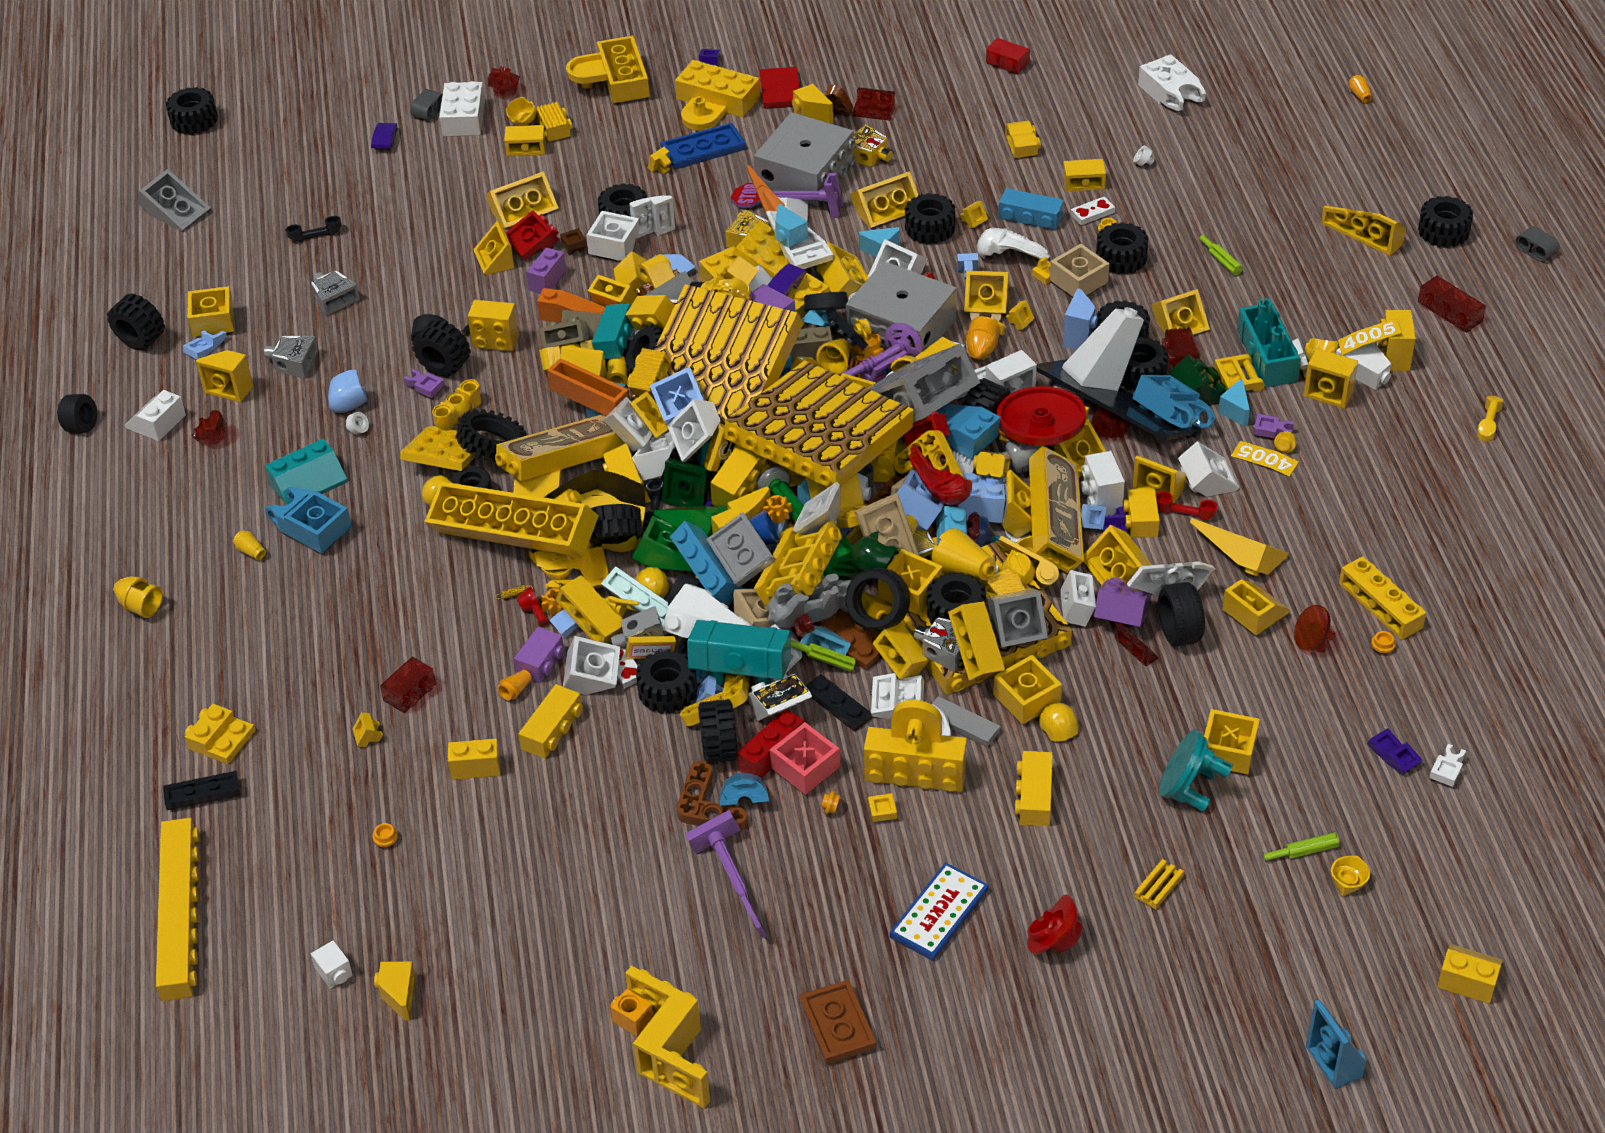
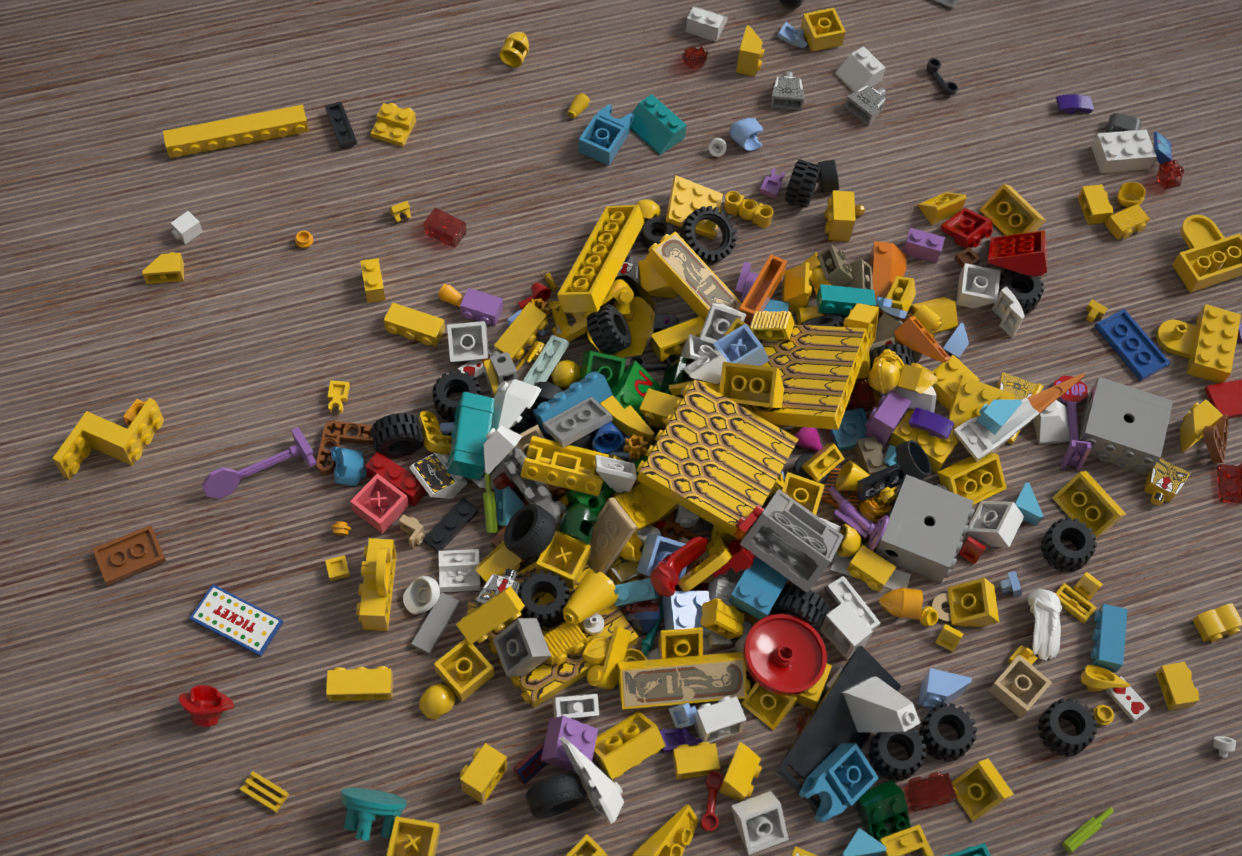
camera: 75 degrees right, 15 degrees up
(282, 290) = (860, 70): none -> white slope
(476, 78) = (1162, 148): none -> blue slope
(552, 417) = (745, 282): none -> medium lavender panel
(584, 188) = (1020, 252): none -> red slope
(627, 297) = (885, 305): none -> light blue slope
(636, 801) = (337, 394): none -> yellow plate
(674, 277) = (917, 338): none -> orange slope
(739, 378) = (752, 384): none -> yellow slope
(775, 608) = (498, 445): none -> white slope
(843, 730) = (414, 528): none -> tan bracket
(908, 400) = (745, 523): none -> red plate
(975, 233) = (1073, 606): none -> yellow tile
(1074, 220) = (1100, 679): none -> yellow piece
(1152, 675) = (483, 773): none -> yellow brick

